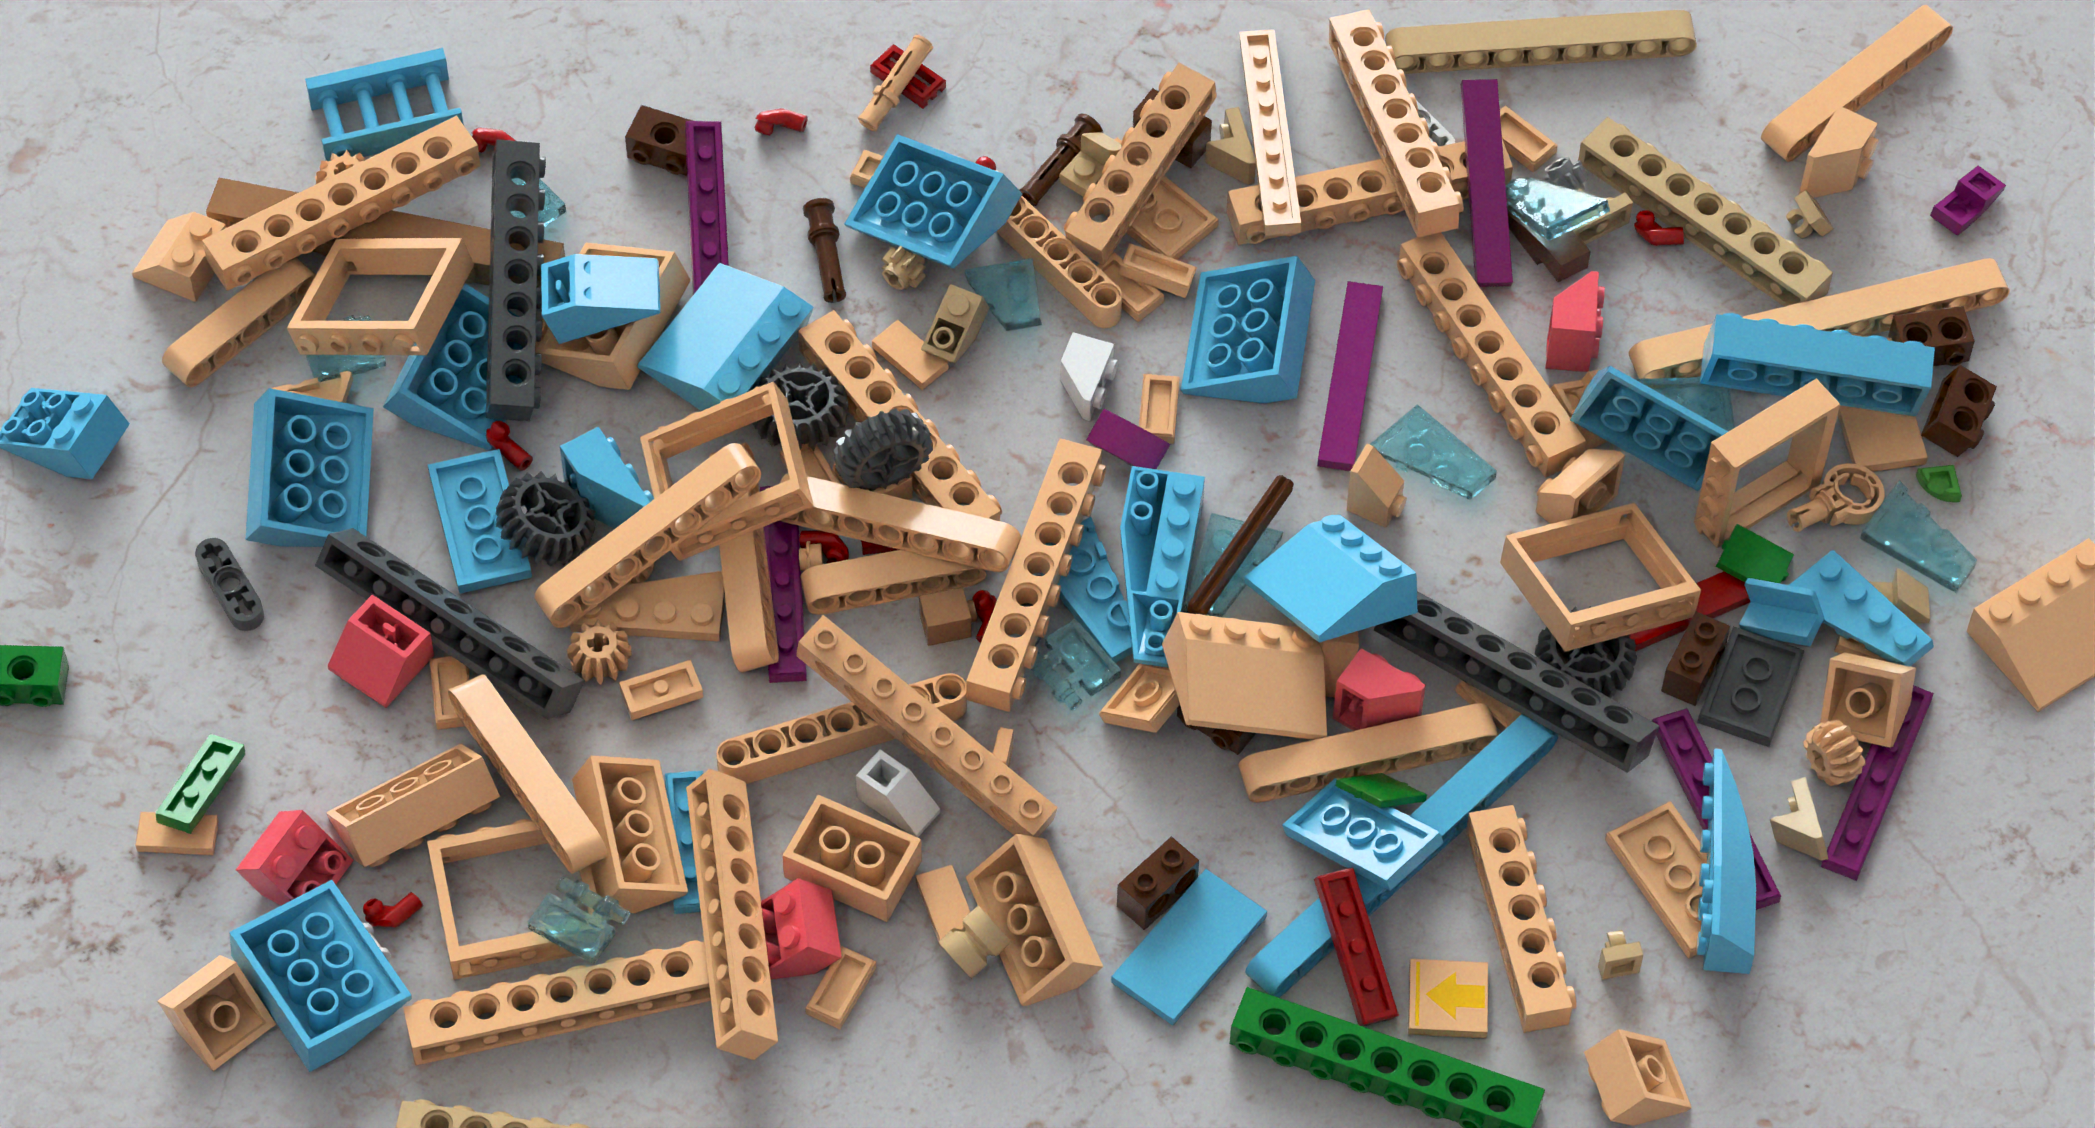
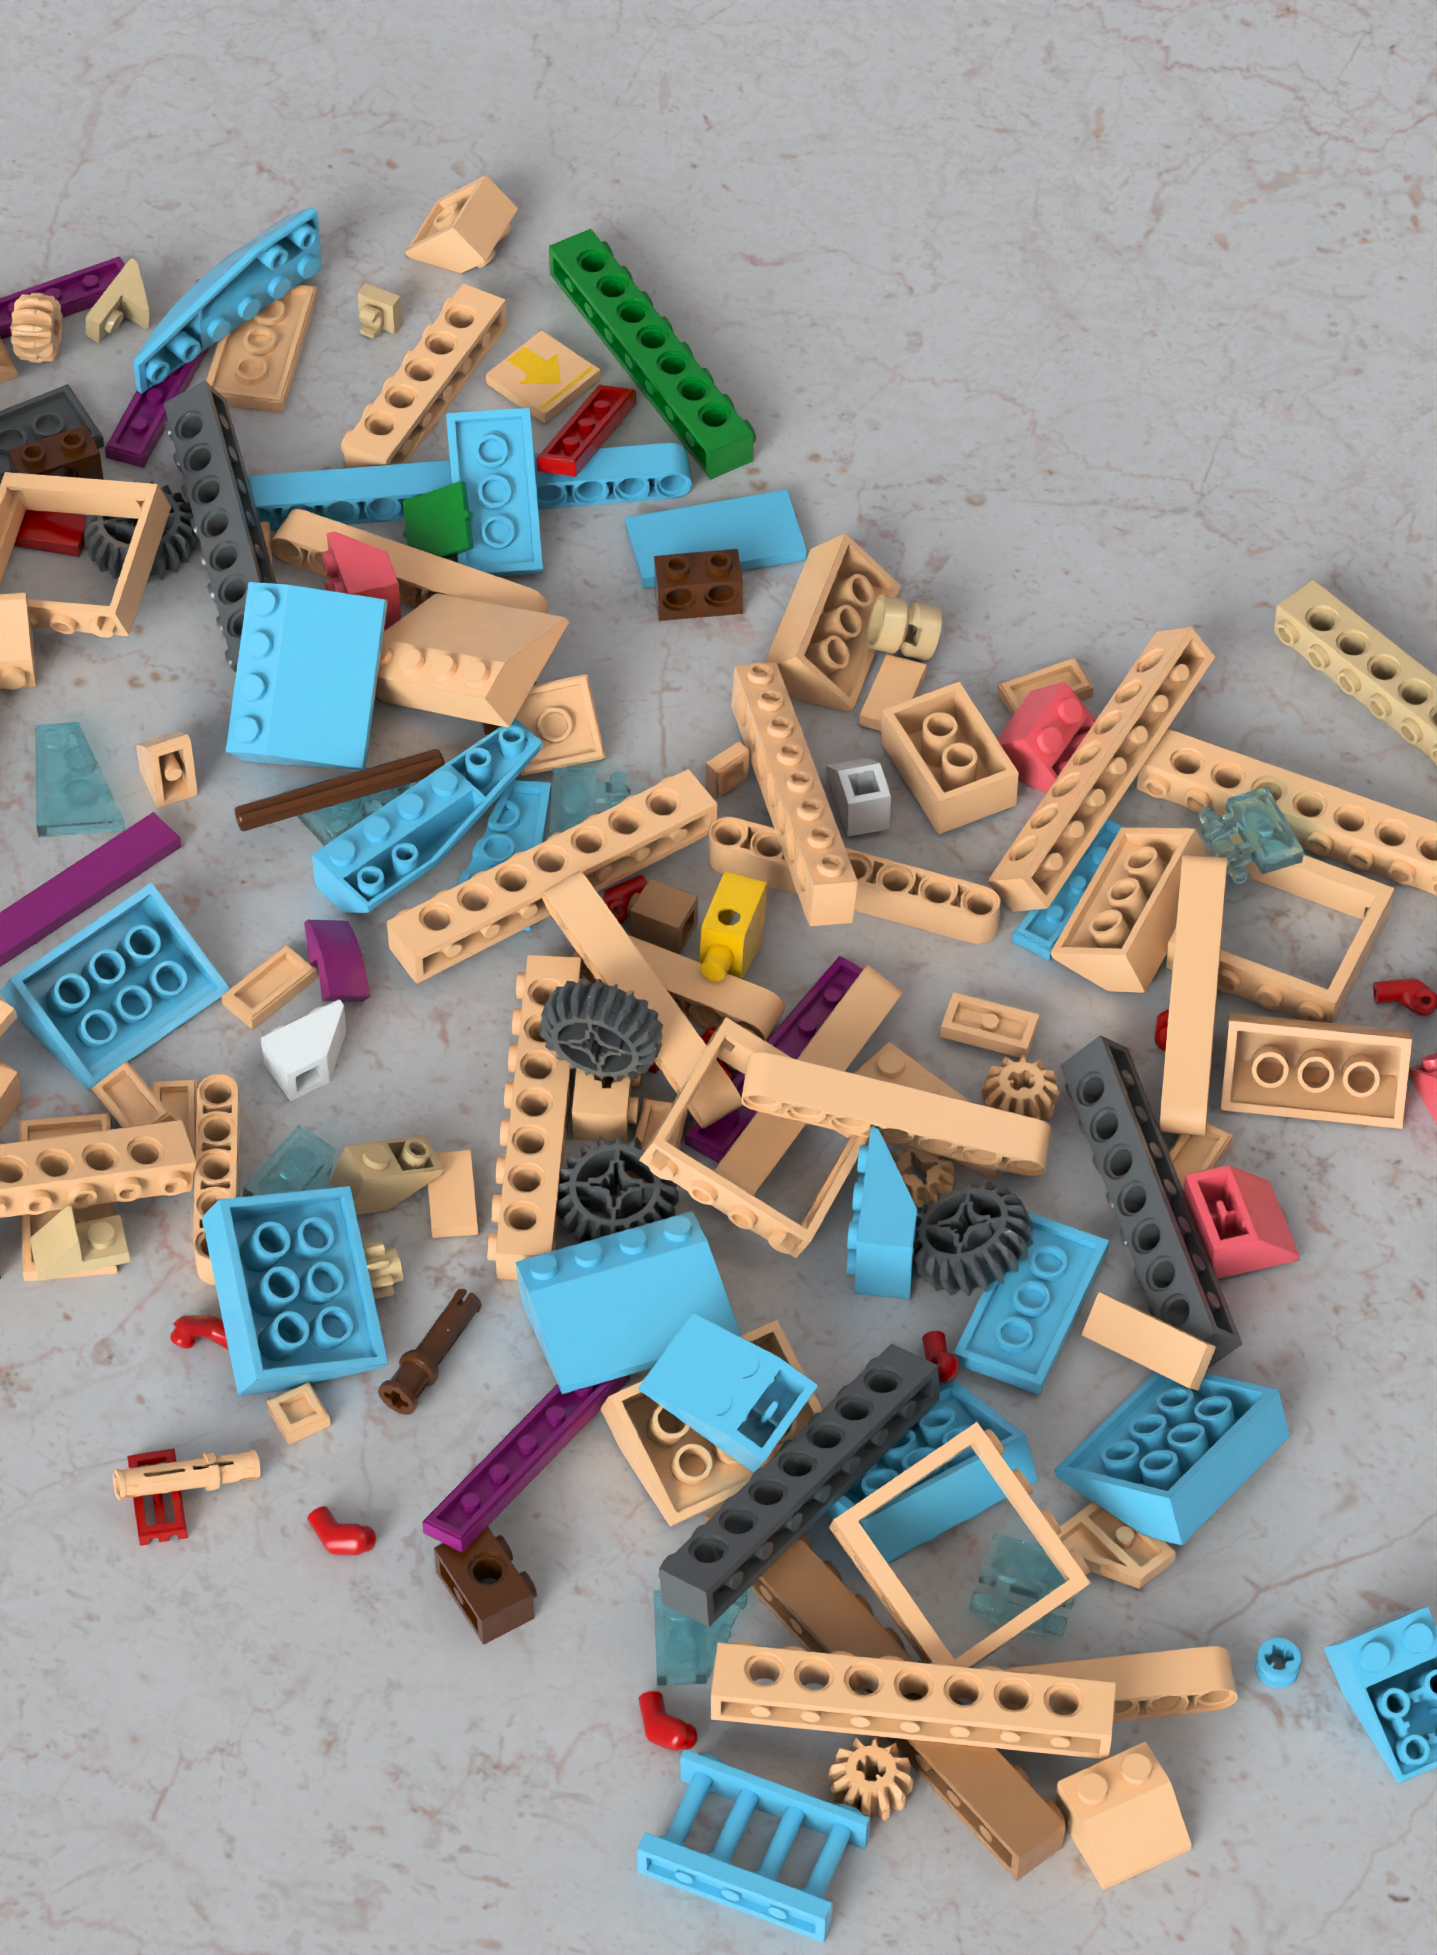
camera: 140 degrees left, 5 degrees down
(154, 415) = (1282, 1648): none -> medium azure bush
(229, 569) = (1325, 1424): dark grey beam -> none
(377, 527) = (1148, 1341): none -> light nougat tile
(880, 614) = (727, 946): none -> yellow torso
(1067, 148) = (83, 1287): reddish brown pin -> none

